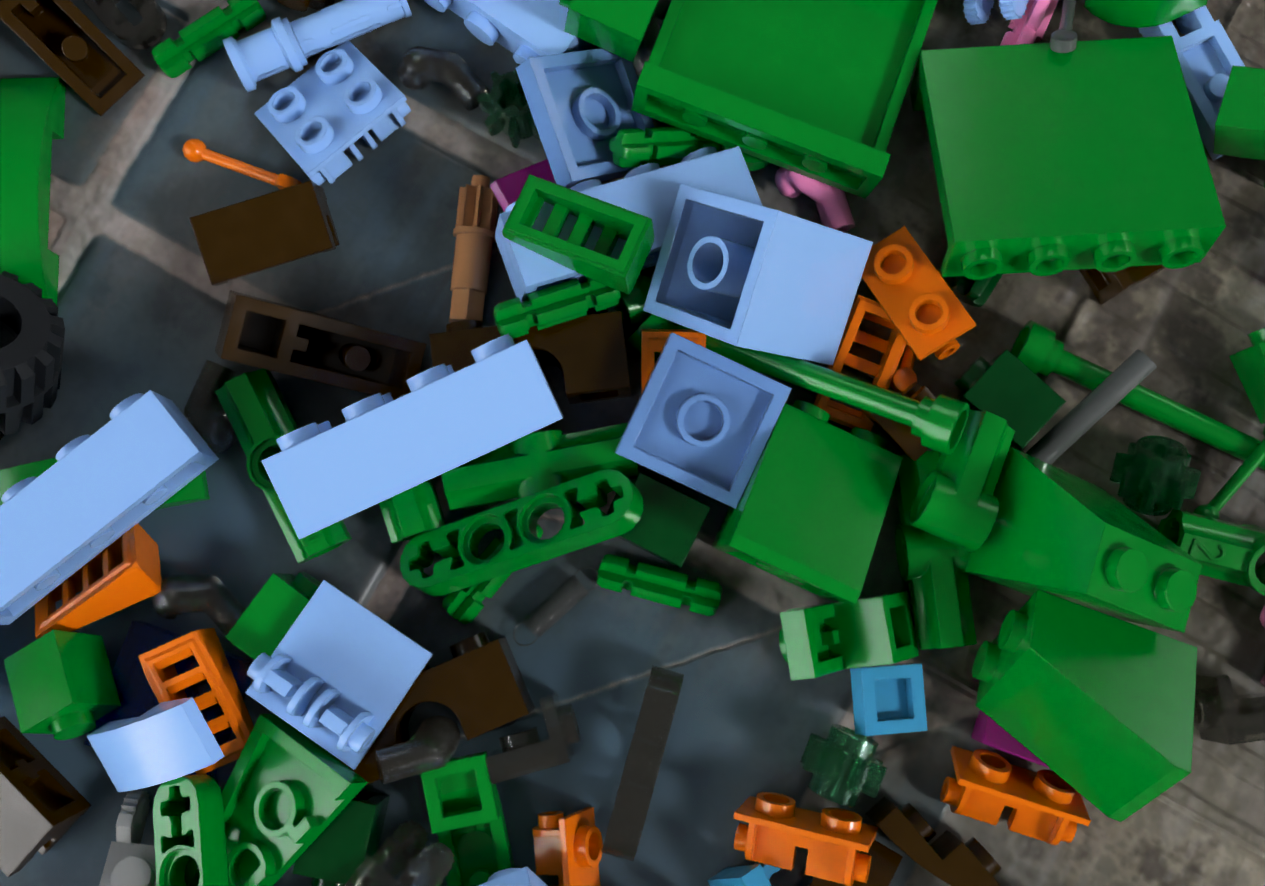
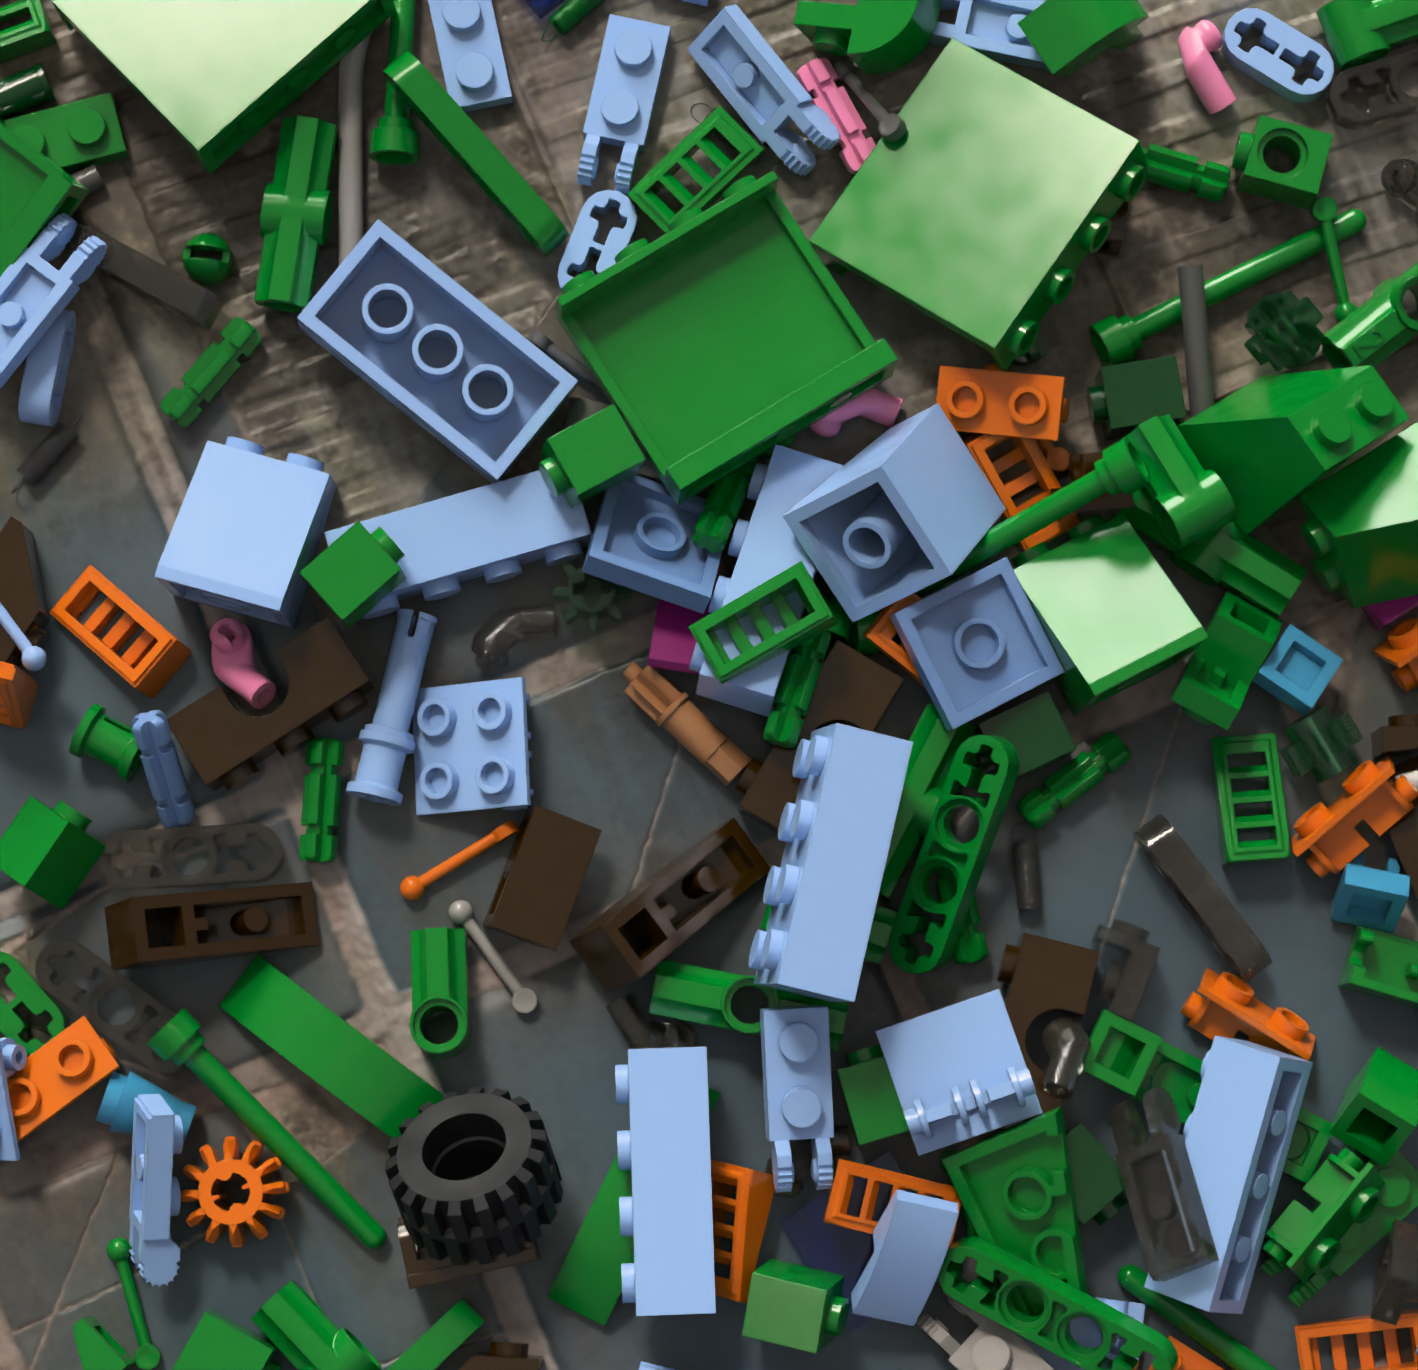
camera: 55 degrees left, 0 degrees up
(124, 221) = (440, 984): none -> green piece
(171, 295) = (523, 999): none -> light grey hinge
(225, 557) = (797, 1089): none -> light blue hinge
(752, 774) = (1257, 851): none -> green slope
(1210, 300) = (1183, 172): none -> green axle

